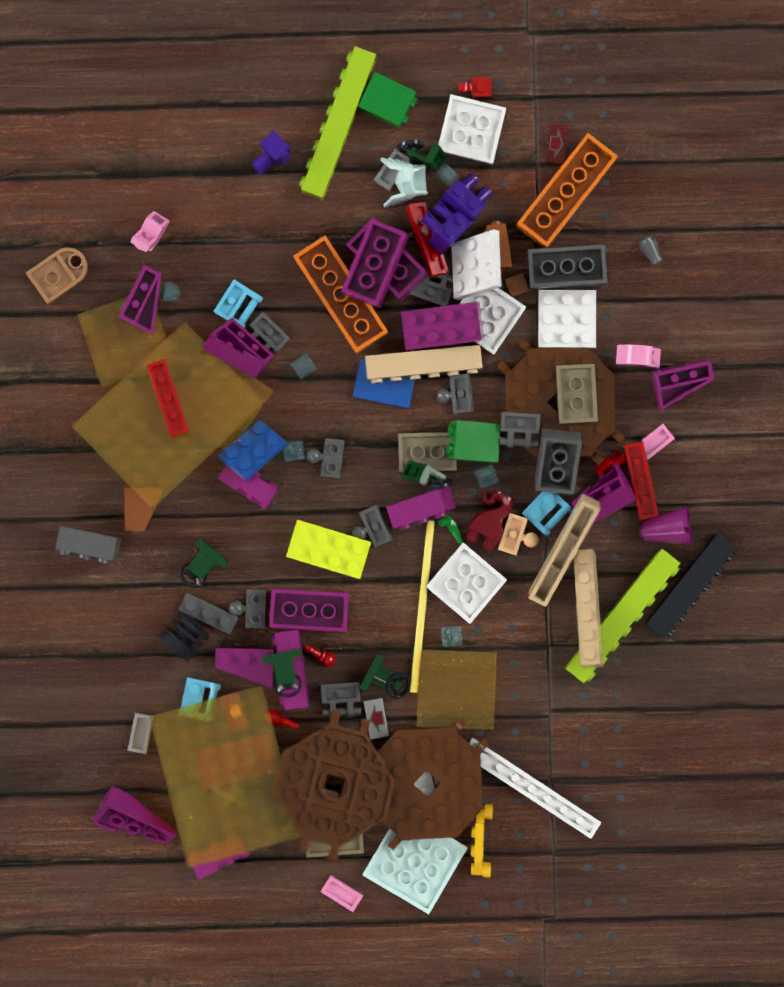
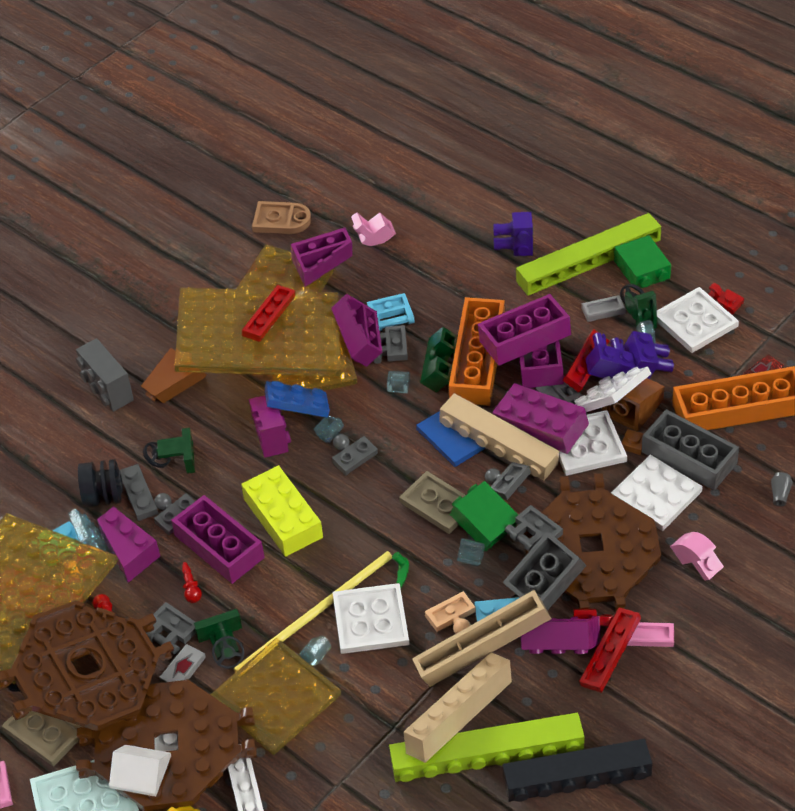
camera: 45 degrees right, 40 degrees down
(171, 293) = (347, 273): clear light blue brick -> none
(216, 680) = (86, 530): none -> clear light blue plate
(284, 671) = (146, 536): dark green piece -> none
(286, 641) = (154, 567): magenta brick -> none
(311, 317) = (436, 369): none -> dark green arch
(374, 526) = (338, 523): dark grey plate -> none
(409, 180) = (610, 316): light aqua helmet -> none
(420, 472) = (418, 494): dark green piece -> none
(420, 508) = (392, 533): magenta wedge -> none
(434, 818) = (138, 769): none -> white slope
(490, 522) = (439, 587): dark red hips -> none
(576, 393) = (611, 538): dark tan plate -> none
(668, 528) = (603, 704): magenta cone -> none
(680, 380) = (720, 596): magenta wedge -> none

